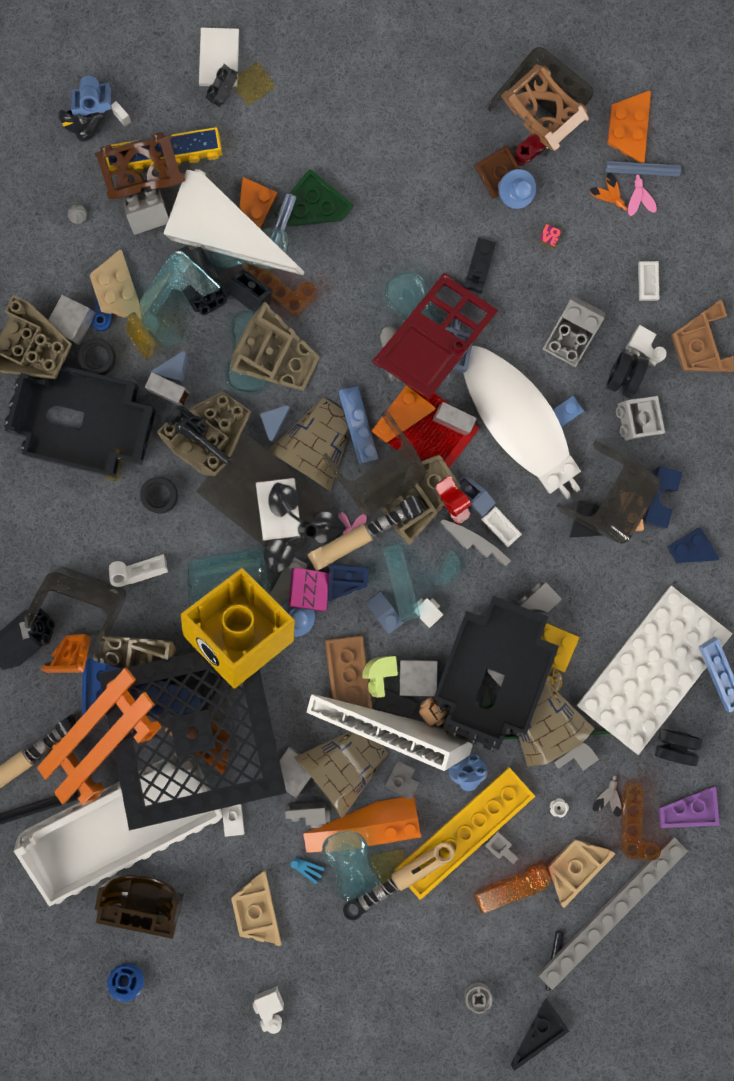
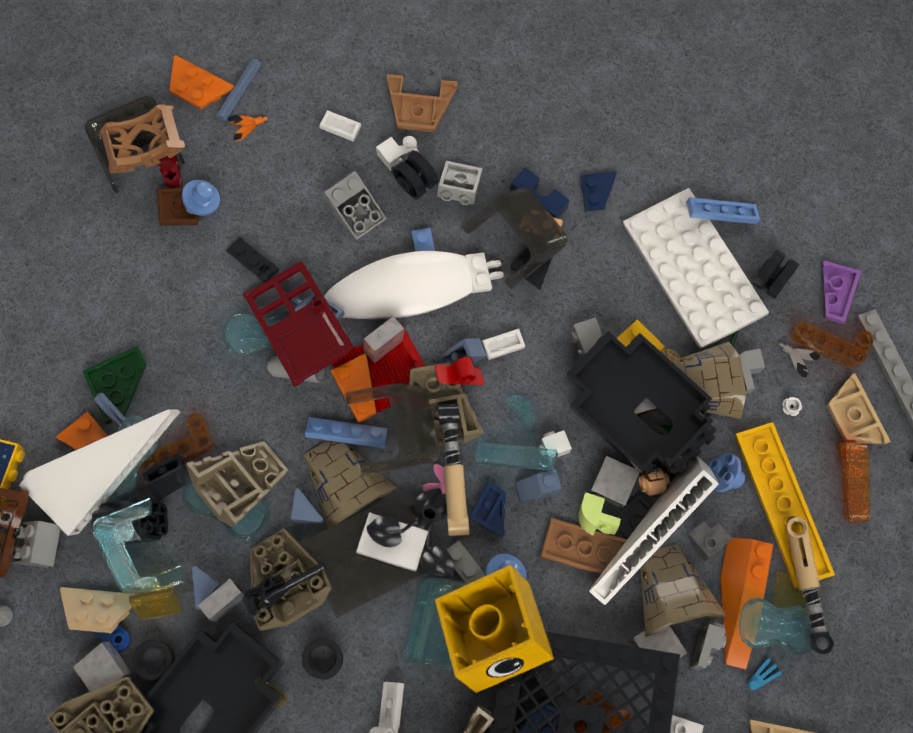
camera: 70 degrees left, 15 degrees down
(308, 589) = (484, 548): dark pink tile -> none
(468, 538) = (502, 377): light grey slope -> none
(500, 846) = (809, 476): light grey plate -> none
(550, 236) = (257, 189): tile -> none
(639, 195) = (261, 102): bright pink piece -> none

